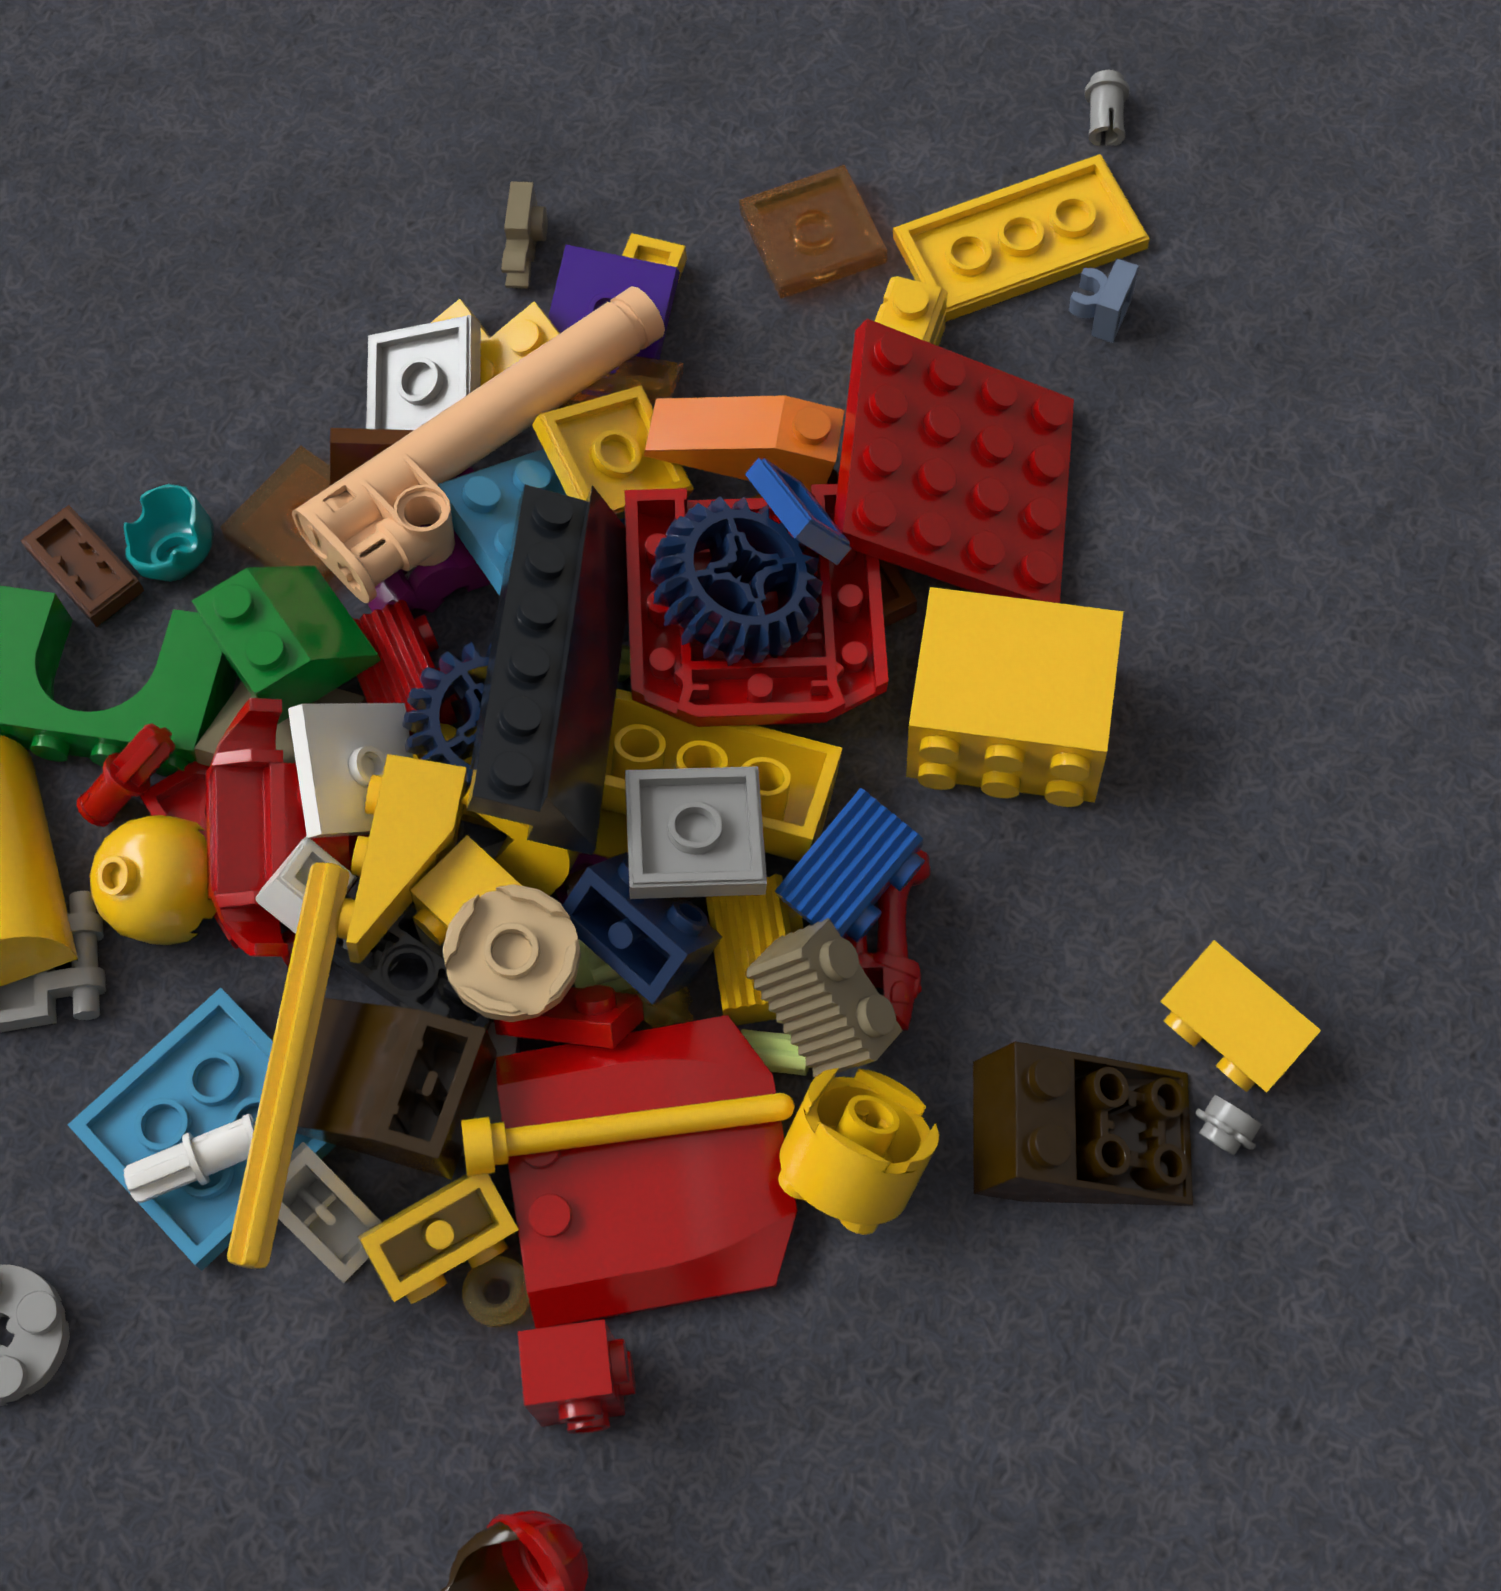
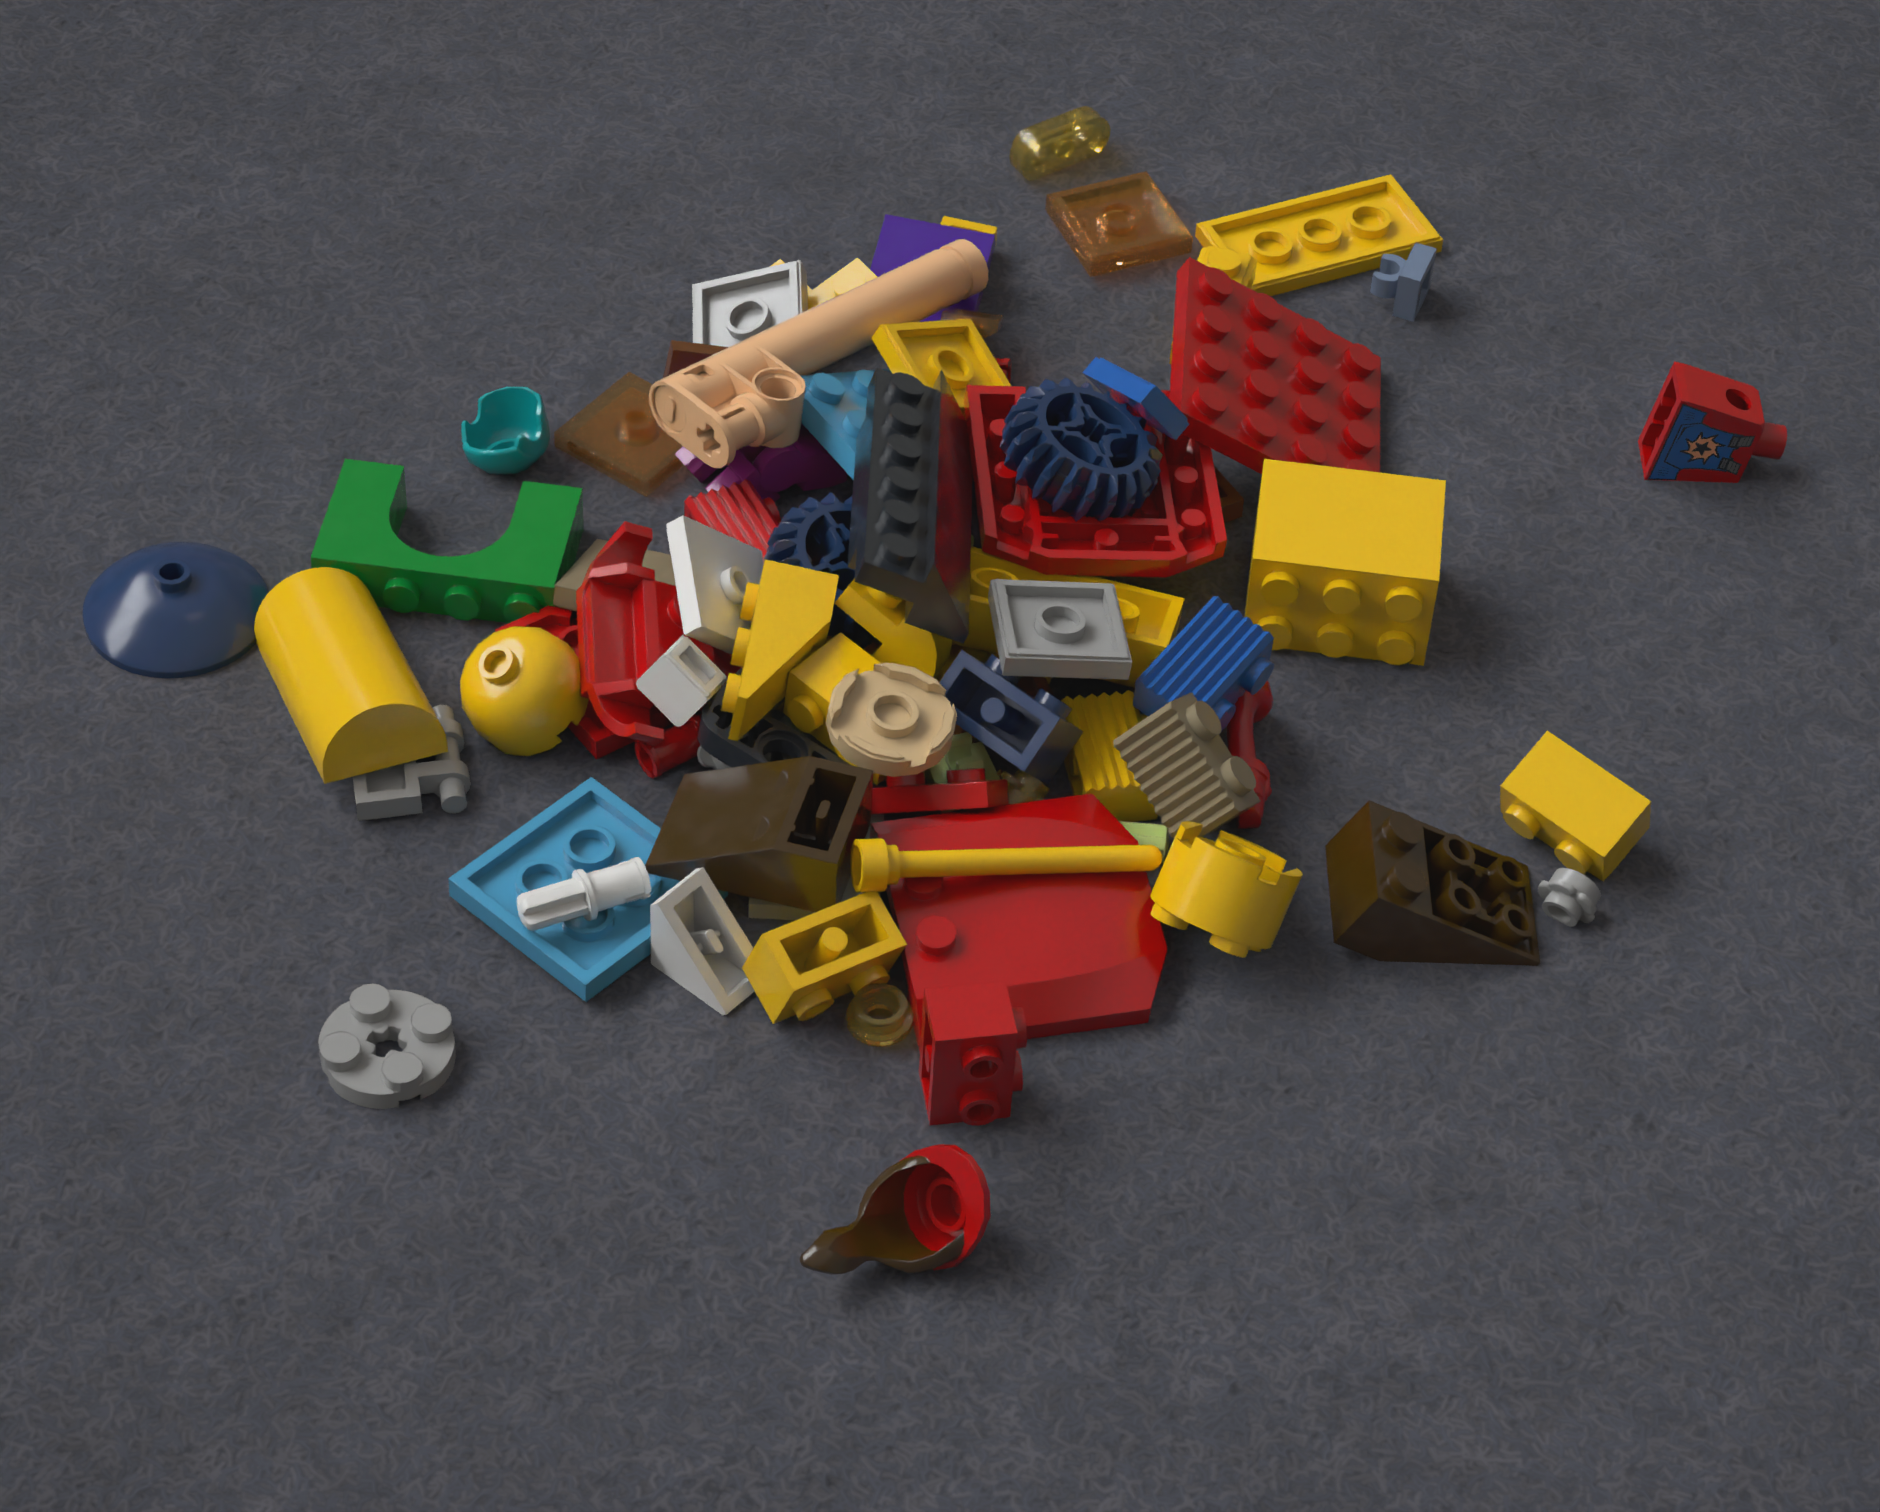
camera: 10 degrees left, 20 degrees down
(82, 565) = (431, 466): reddish brown plate -> none
(126, 775) = (486, 608): red axle -> none
(285, 633) = (631, 479): green slope -> none
(288, 1068) = (685, 798): yellow axle -> none
(523, 227) = (838, 210): dark tan plate -> none
(734, 432) = (1065, 348): orange slope -> none
(757, 129) = (1059, 142): none -> clear yellow plate
(1106, 97) = (1394, 131): light grey pin -> none
(1413, 496) = (1706, 429): none -> red torso

